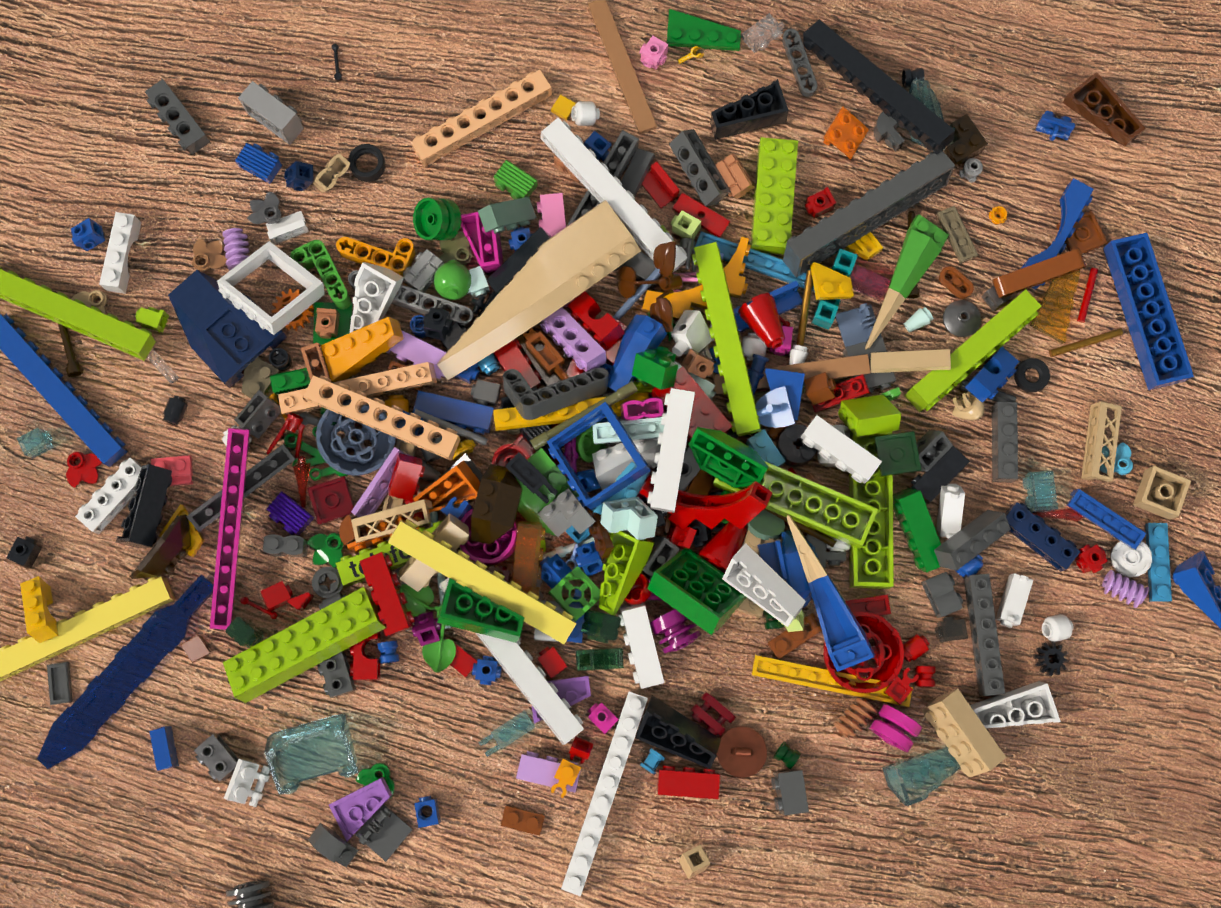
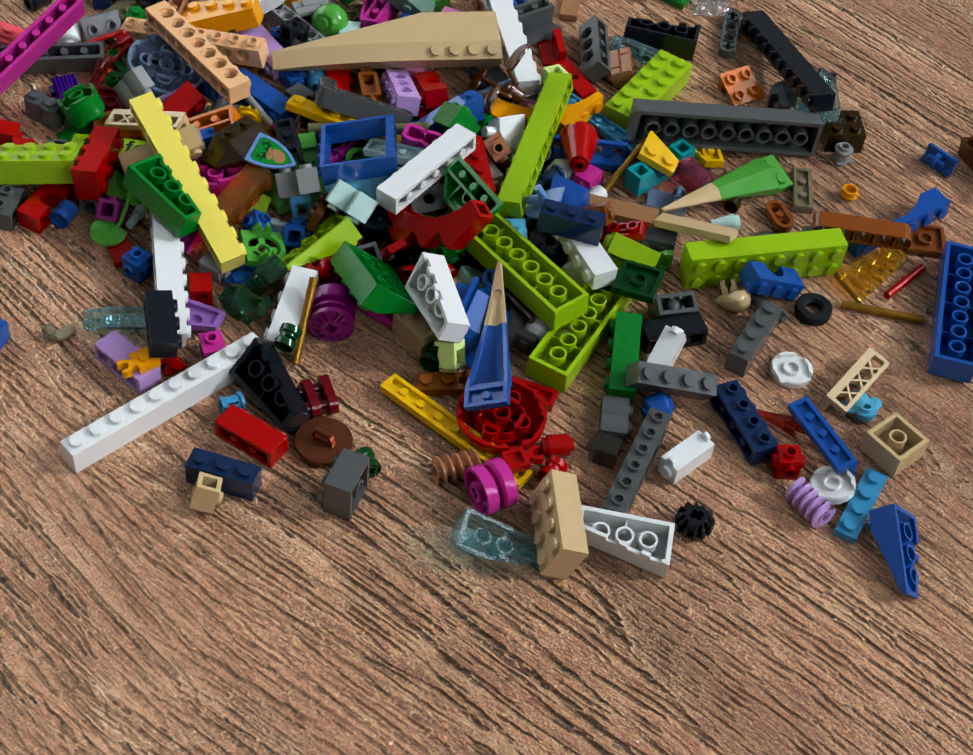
camera: 25 degrees right, 30 degrees down
(321, 533) = (81, 105): none -> green brick
(351, 484) = (134, 84): none -> light grey brick
(473, 777) = (50, 333): none -> dark tan arm
(522, 820) = (72, 388): dark orange plate -> none
(529, 508) = (269, 153): none -> shield
(565, 741) = (161, 323): none -> black brick
(661, 655) = (304, 320): none -> pearl gold bar
(662, 684) = (287, 338): none -> dark green wheel
(693, 834) = (239, 477): none -> dark blue brick
(731, 143) = (640, 51): none -> clear light blue hinge
(782, 526) = (484, 278): none -> blue hinge
(823, 439) = (571, 222): none -> dark blue brick
(1040, 491) = (767, 389): clear light blue brick -> none
(1045, 453) = (791, 370): none -> white tile
(1057, 628) = (718, 499): white head -> none

